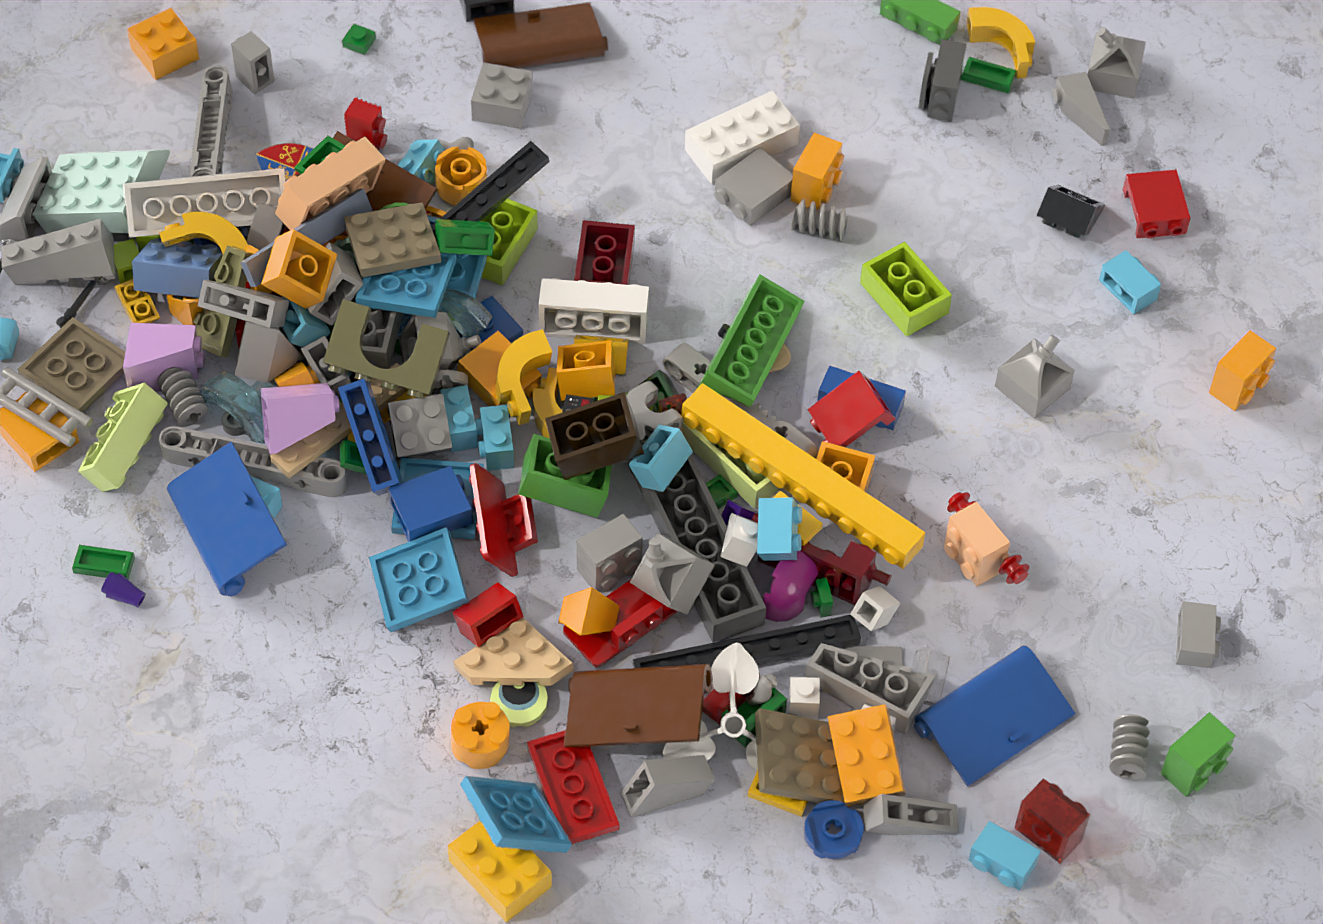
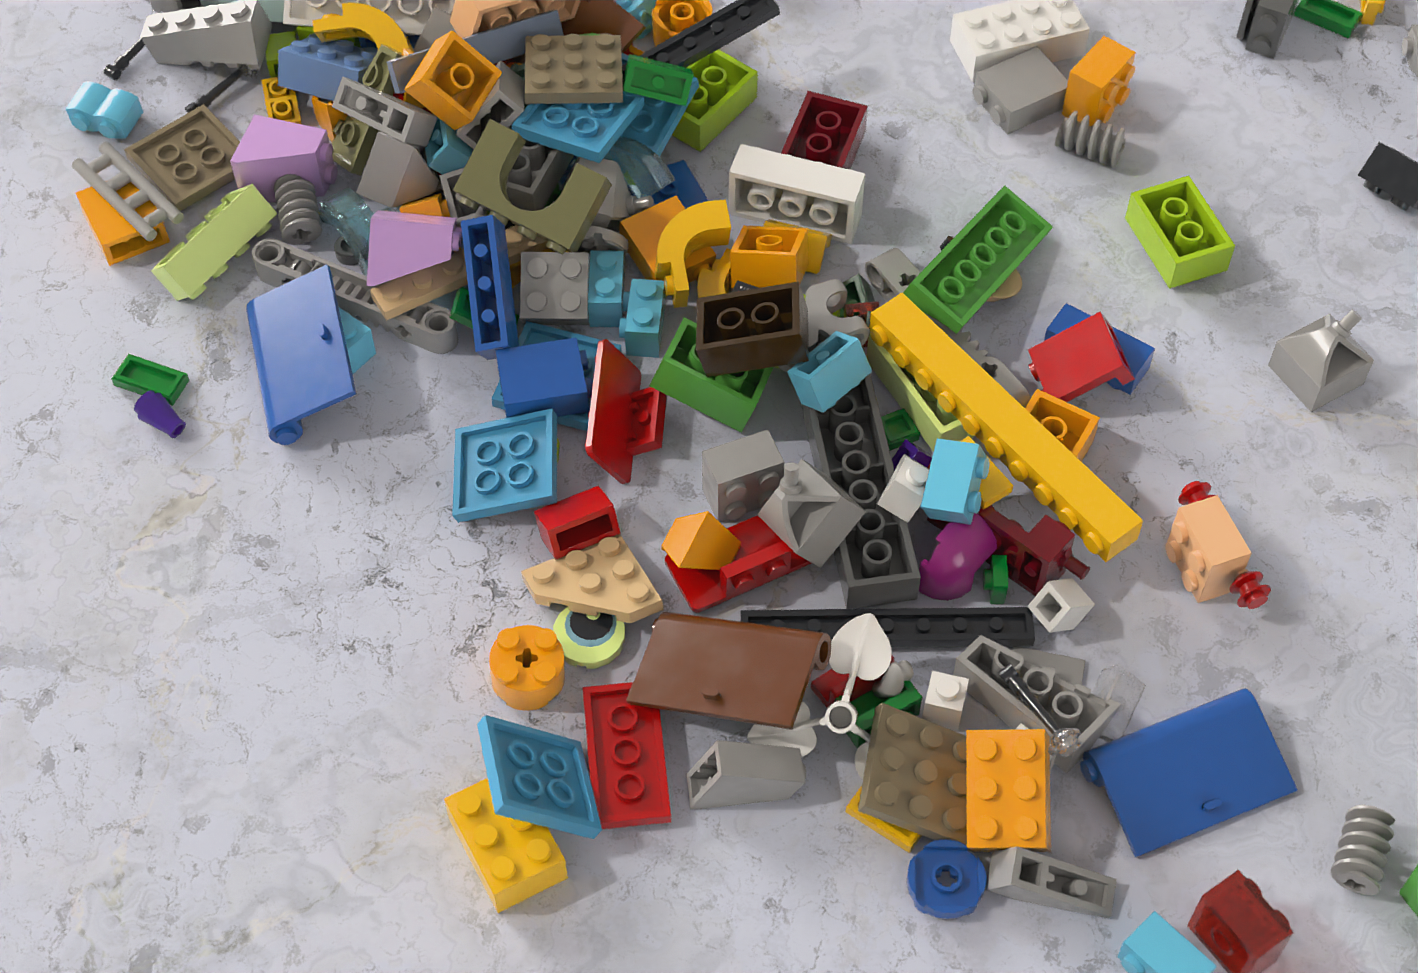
camera: 15 degrees right, 0 degrees up
(899, 710) = (1063, 740): none -> piece

